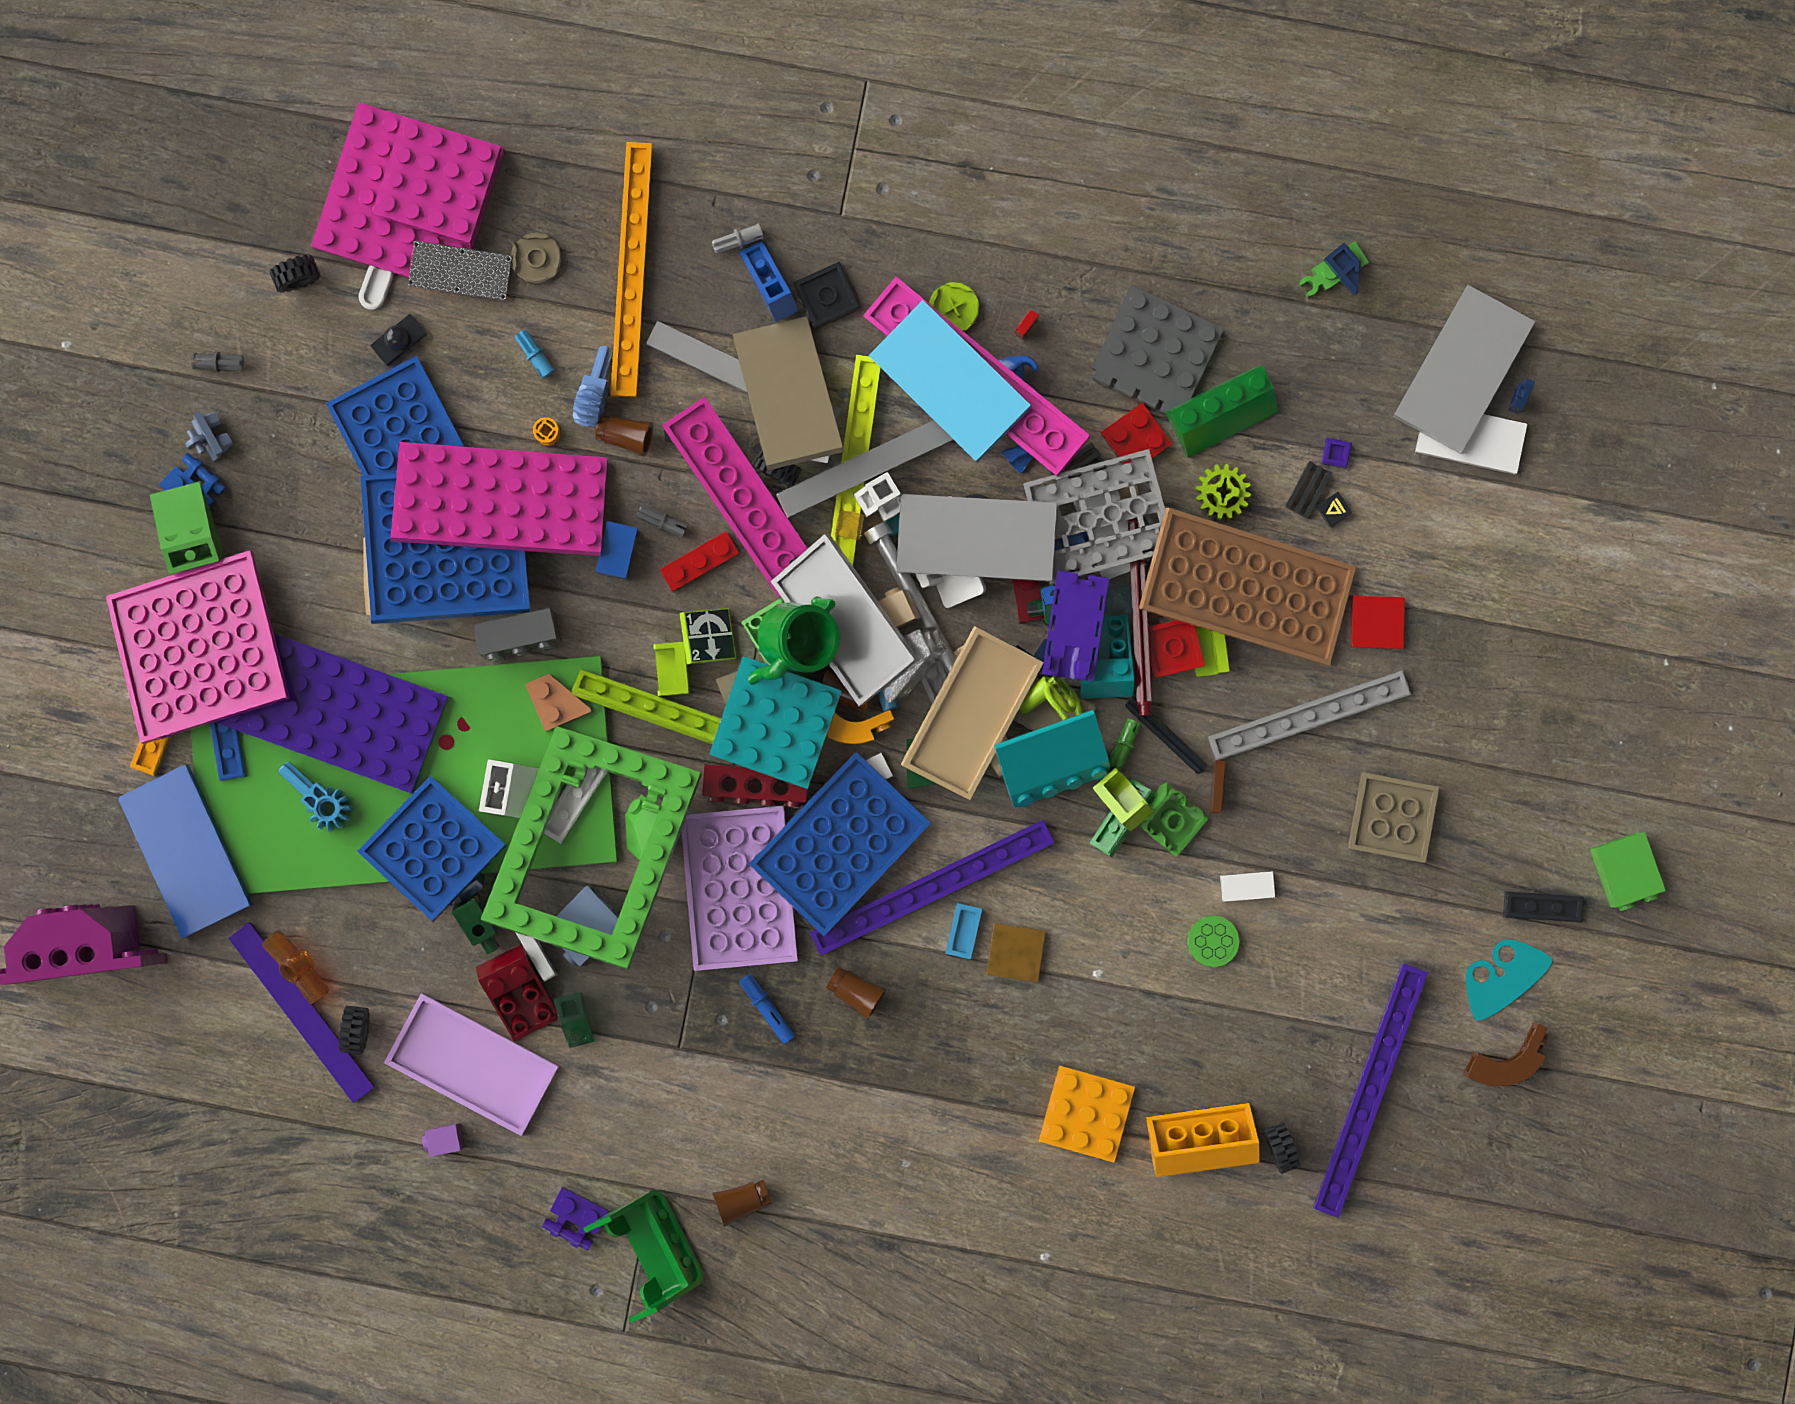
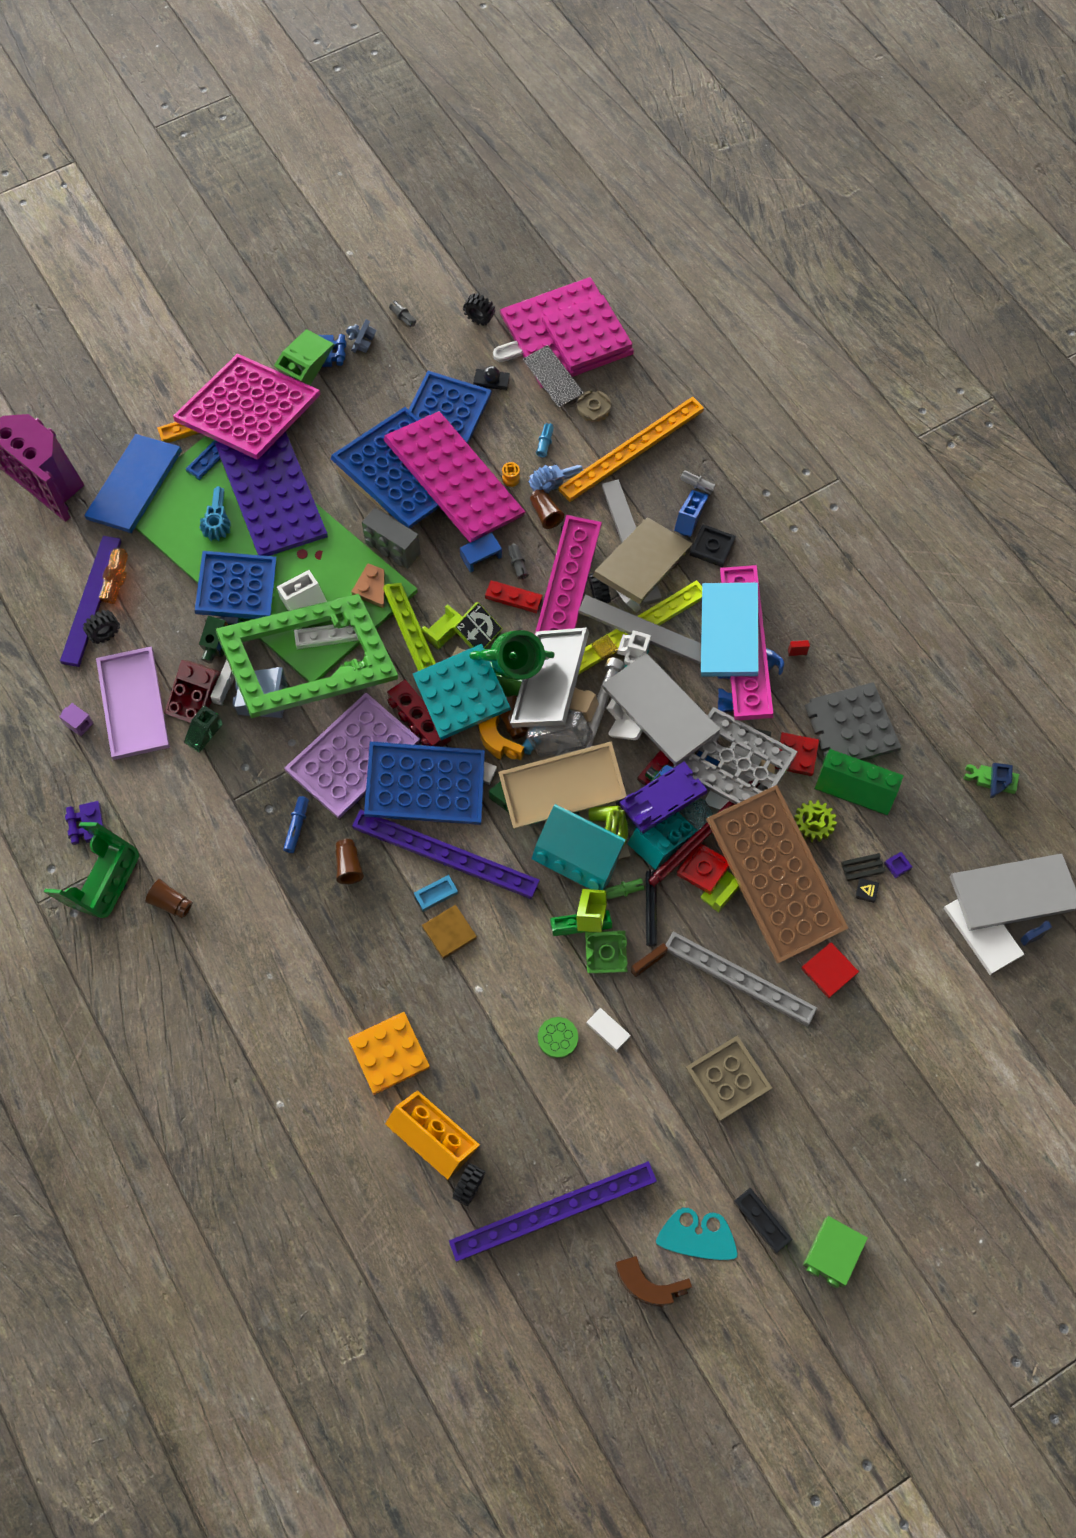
camera: 50 degrees right, 20 degrees down
(957, 304) = (773, 608): lime tile -> none

